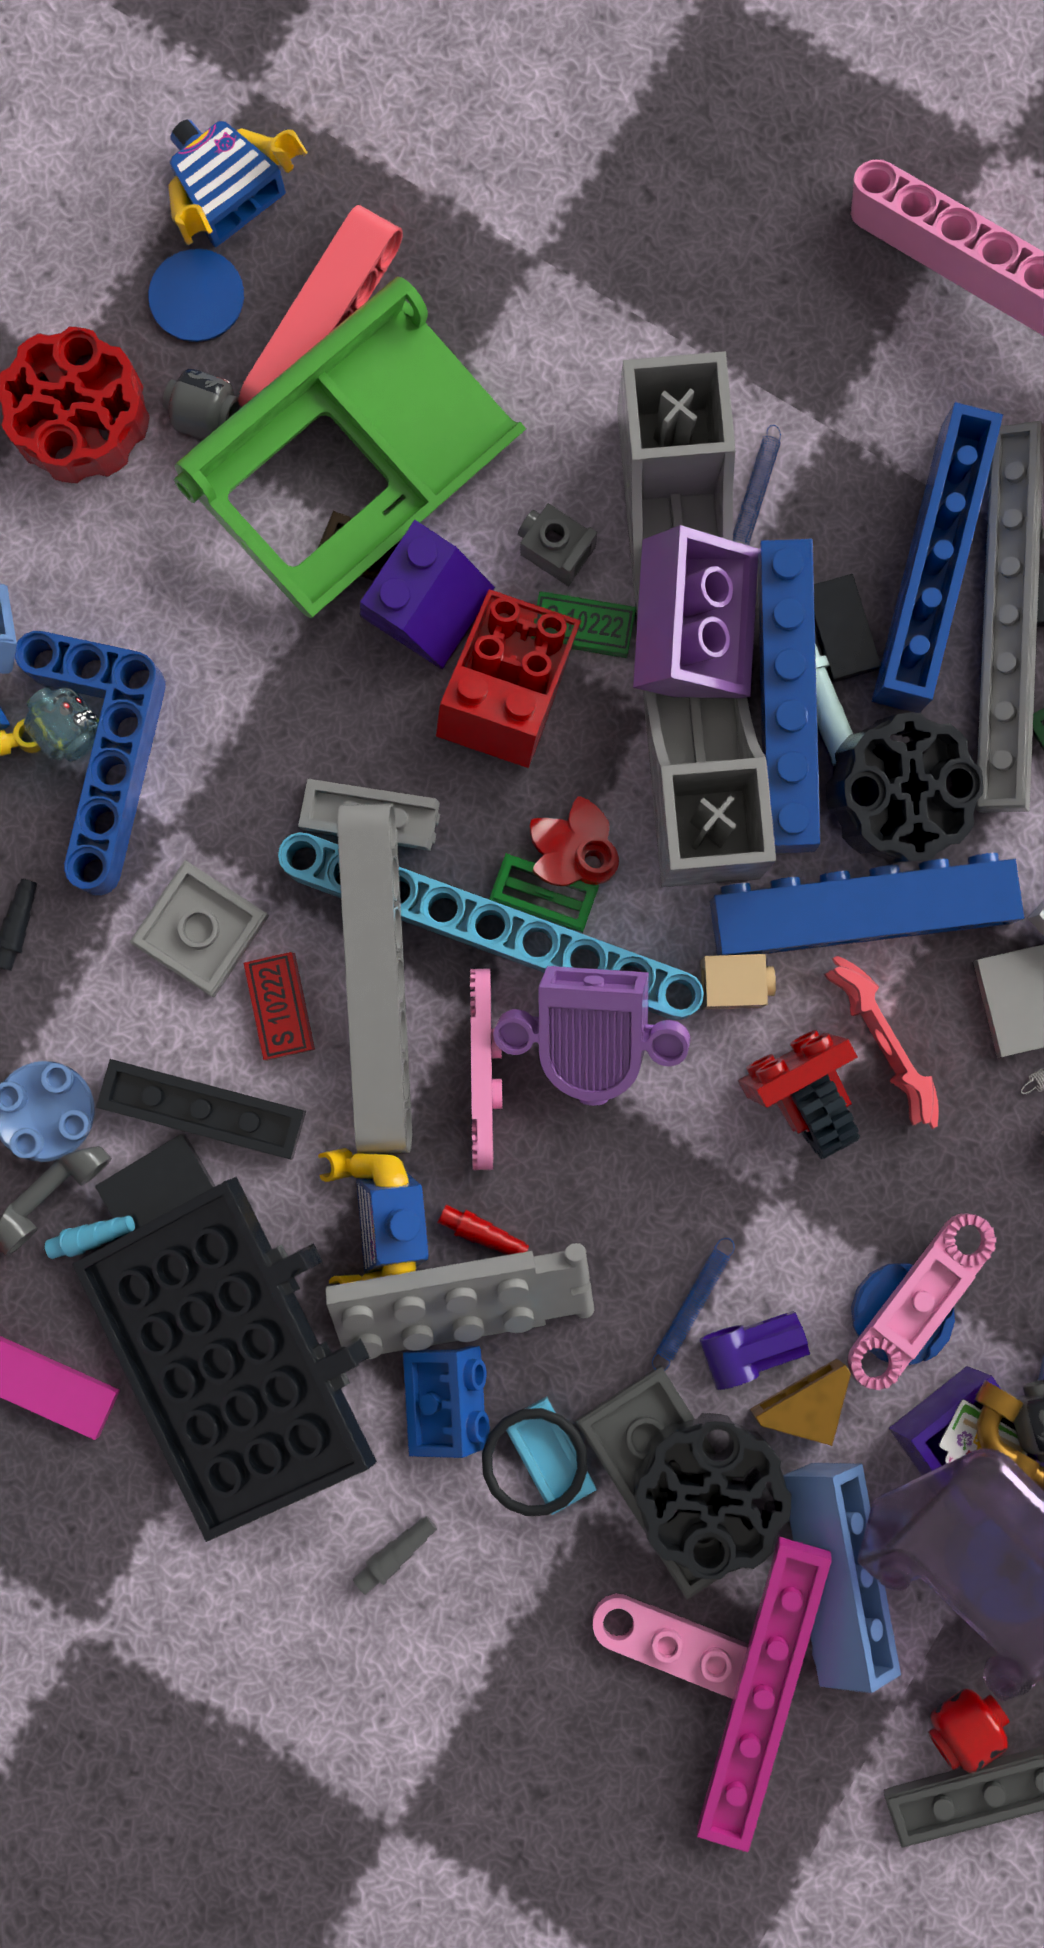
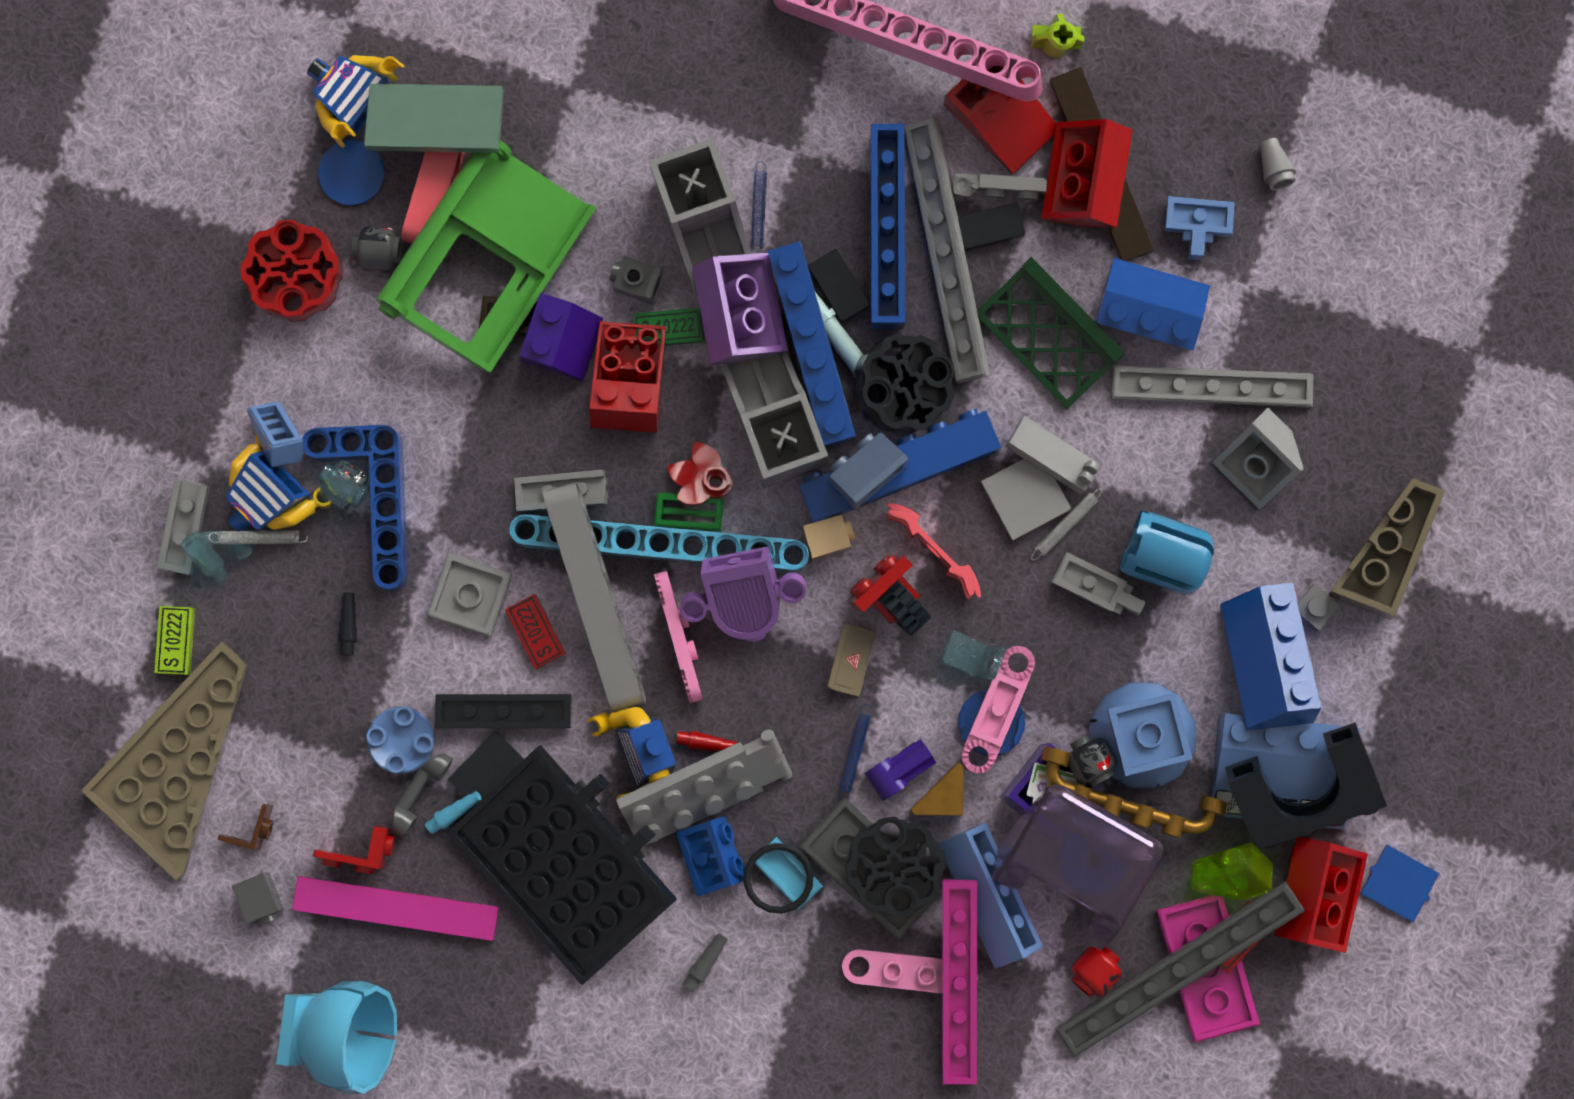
camera: 15 degrees left, 0 degrees up
(329, 233) = (434, 118): none -> sand green tile
(722, 1168) = (851, 660): none -> dark tan slope
(826, 898) = (868, 469): none -> sand blue slope
(903, 1211) = (972, 656): none -> clear light blue bracket

